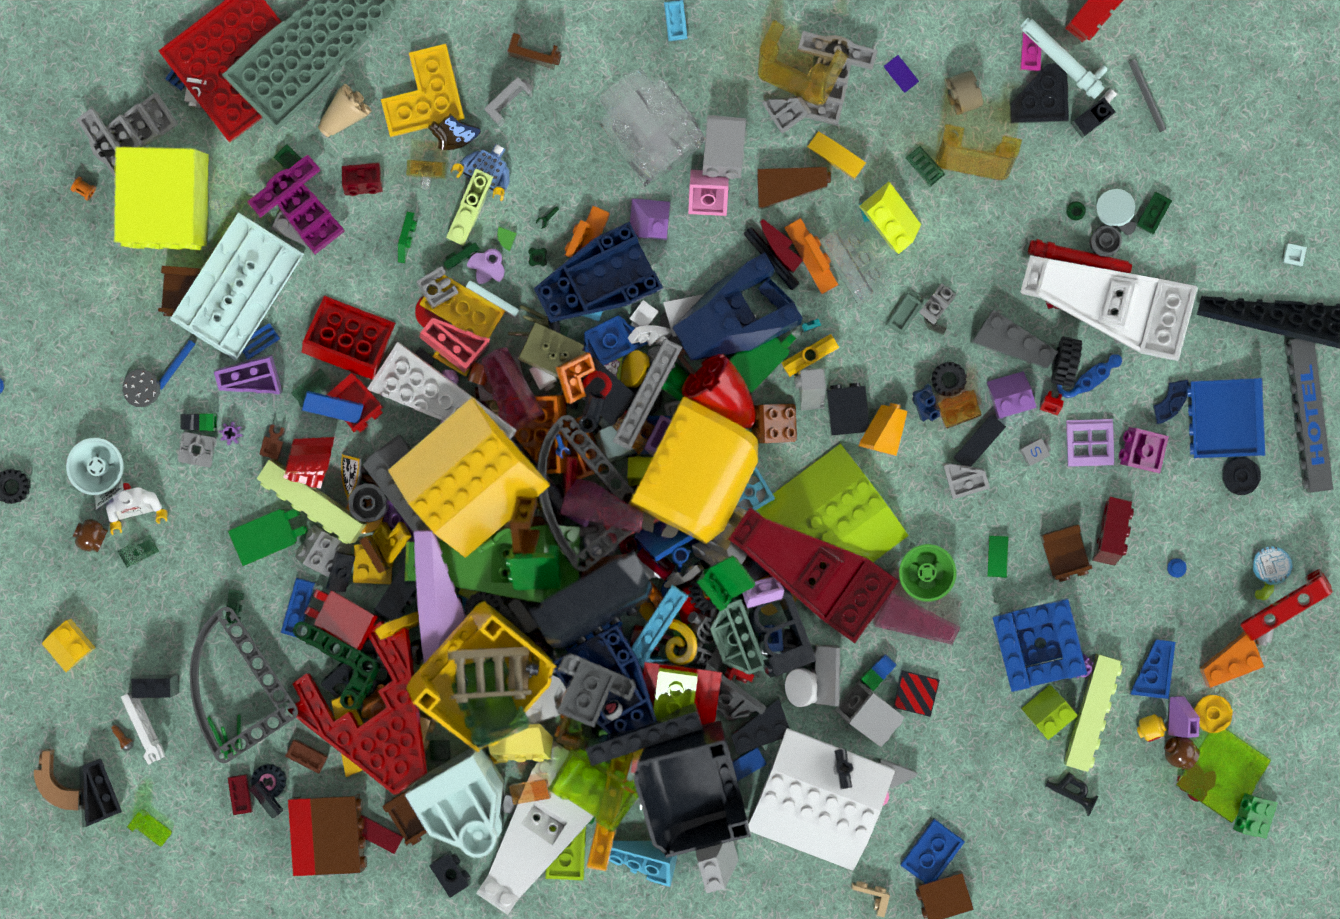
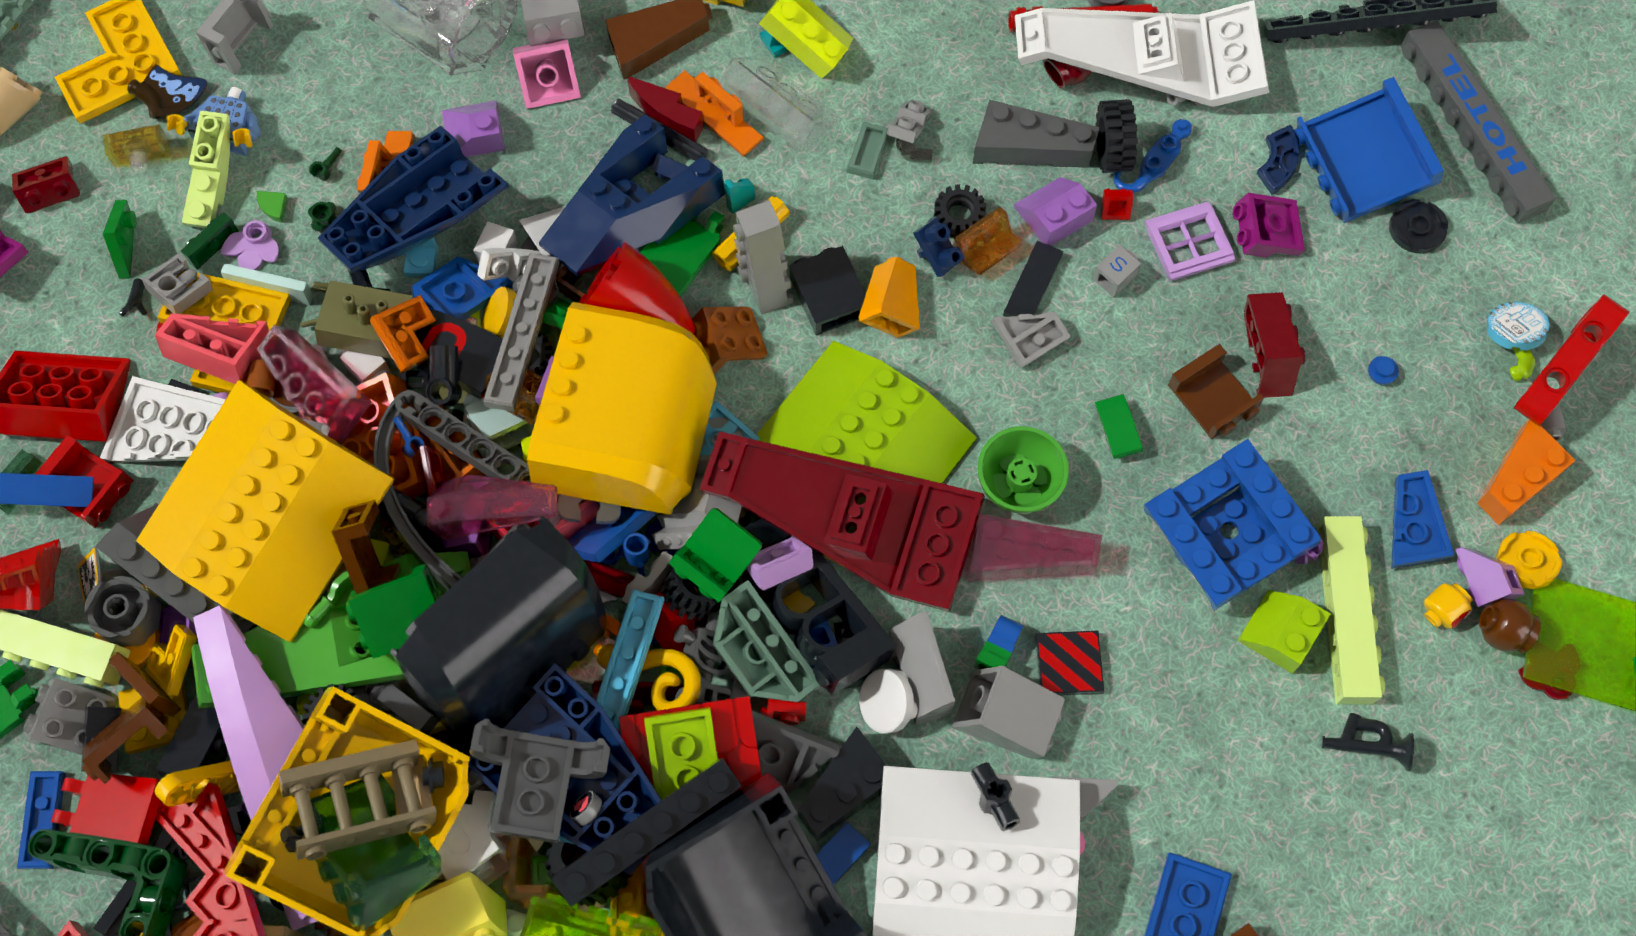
camera: 20 degrees left, 20 degrees down
(356, 581) = (117, 733): none -> reddish brown panel
(405, 283) = (135, 298): none -> black bar
(446, 678) = (291, 832): none -> black hand

